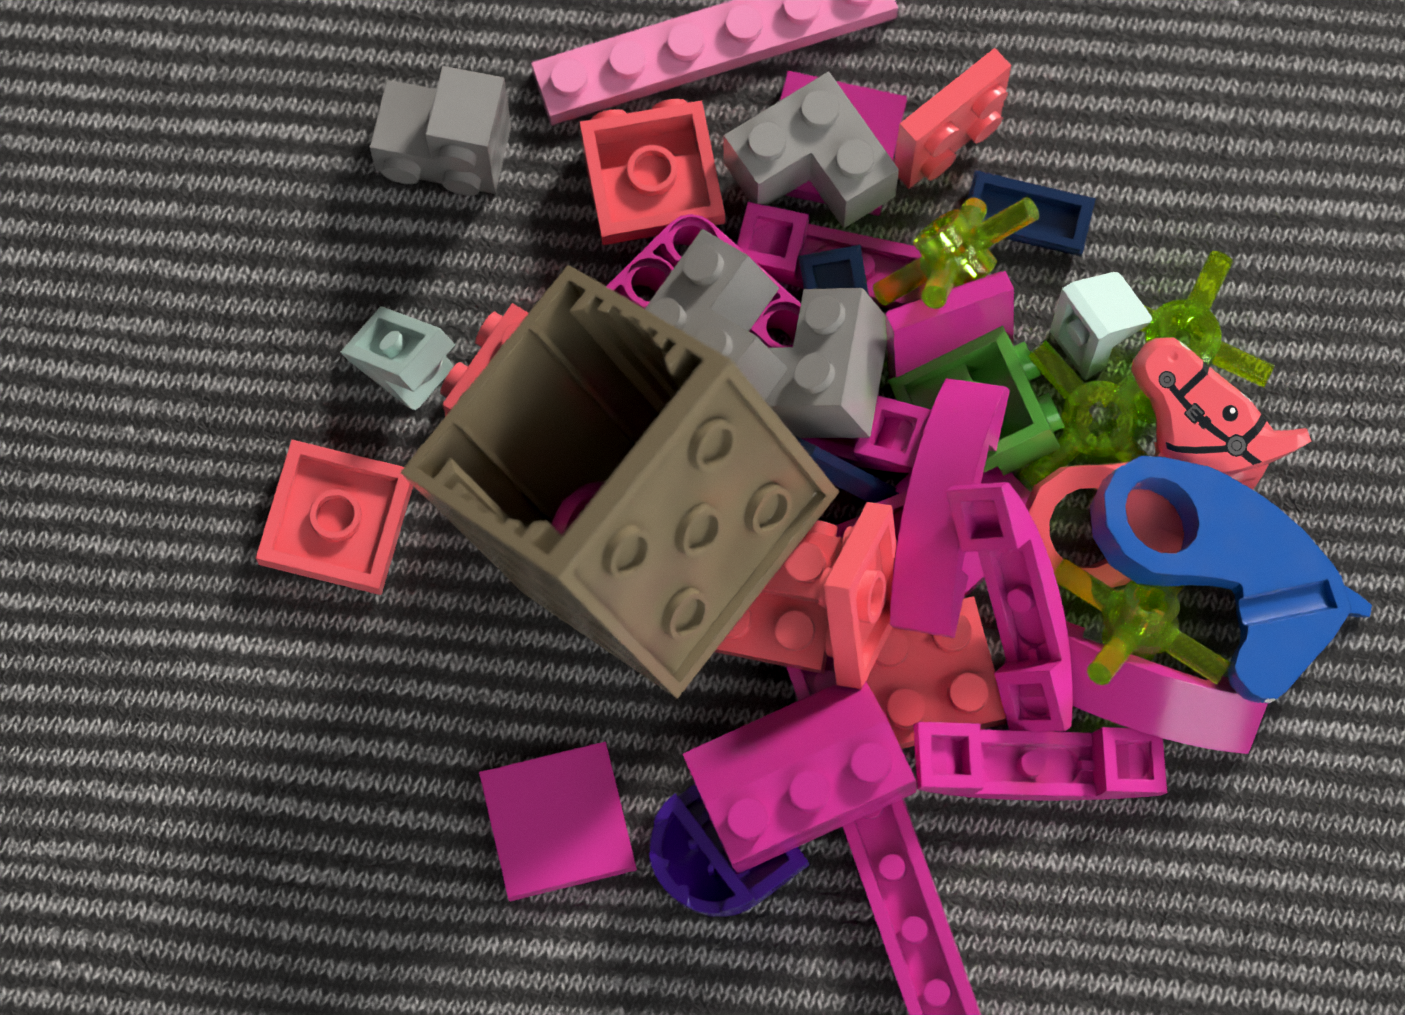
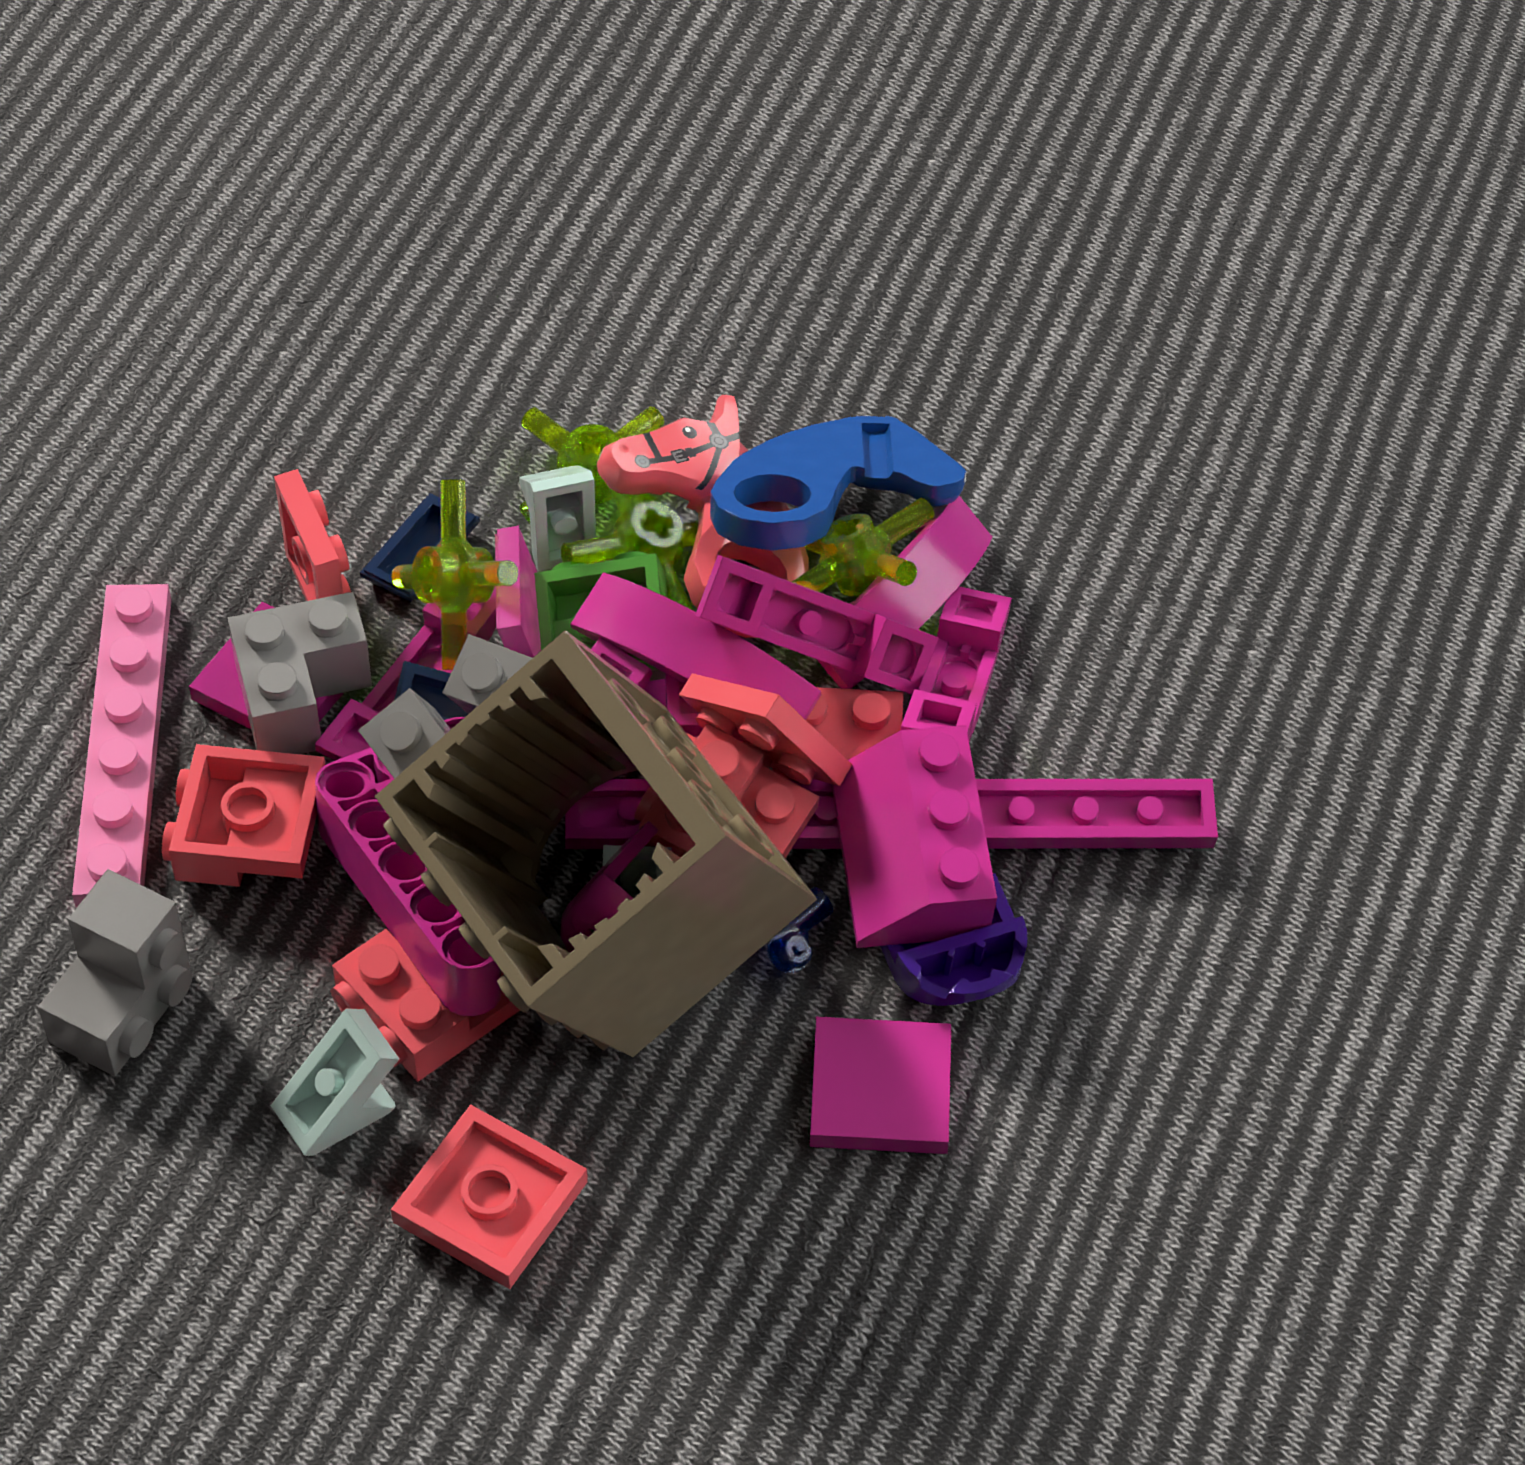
camera: 75 degrees left, 20 degrees down
(701, 693) = (790, 947): none -> clear blue arm

